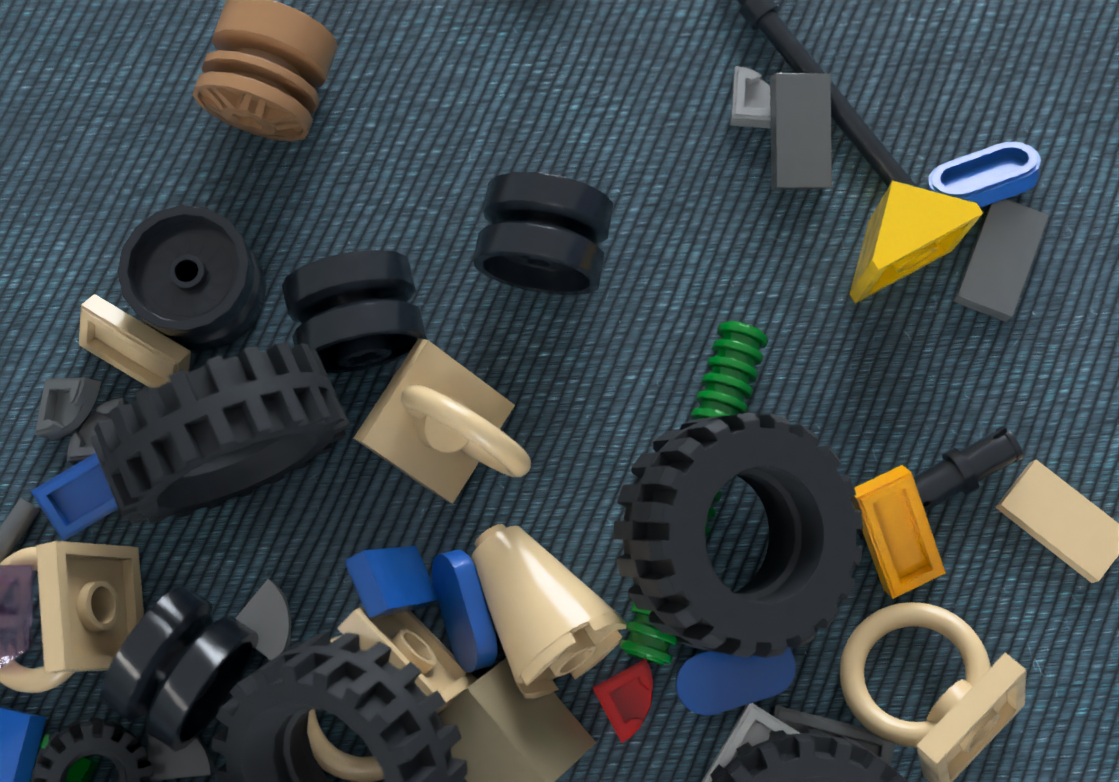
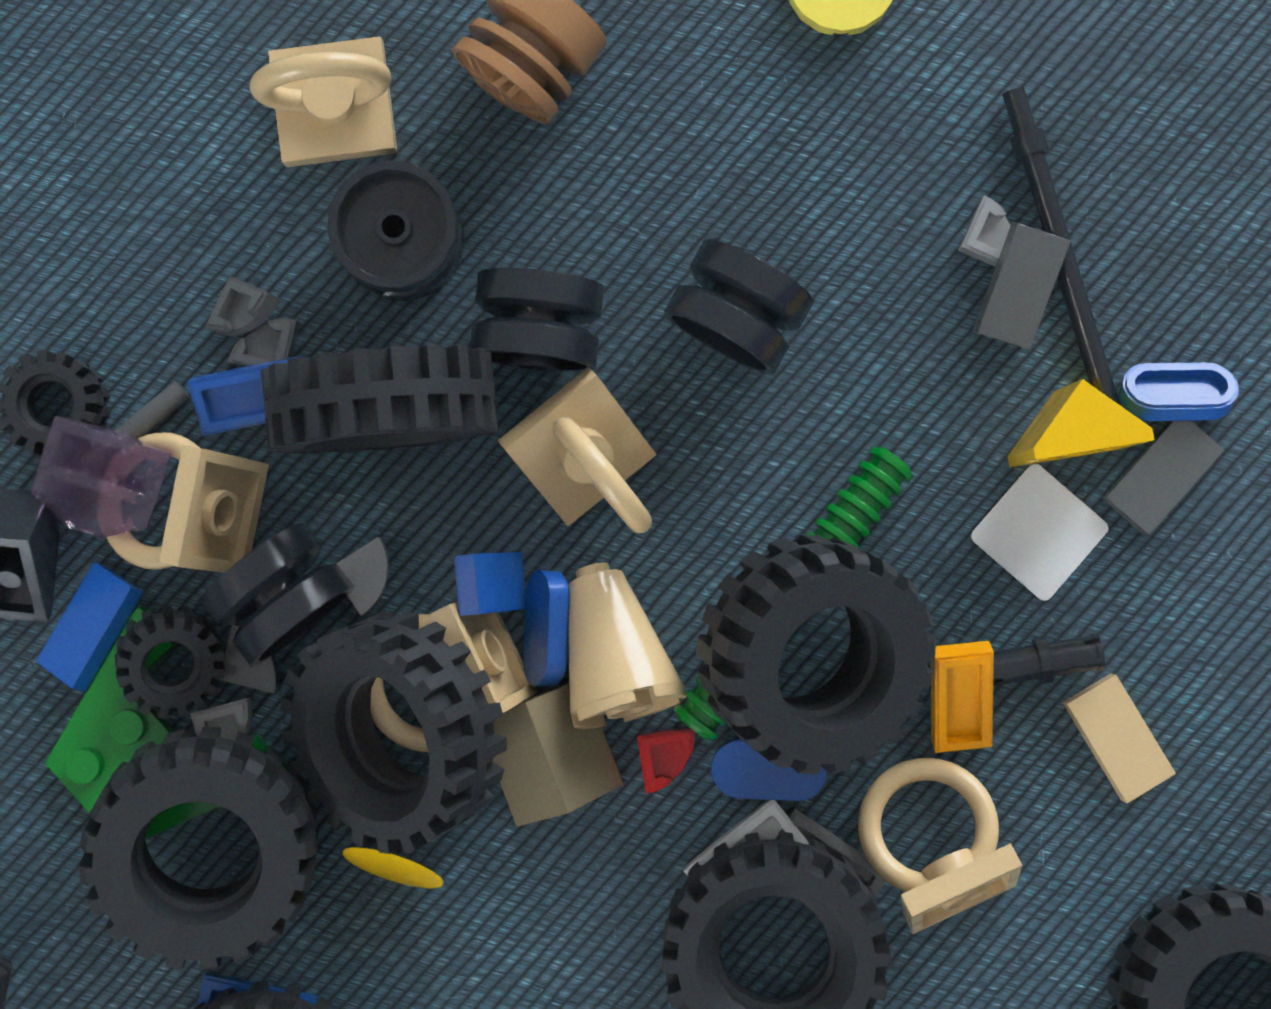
camera: 15 degrees right, 10 degrees up
(89, 182) = (329, 101): none -> tan tile
(129, 343) = (320, 276): tan tile -> none
(907, 353) = (1039, 532): none -> white sticker

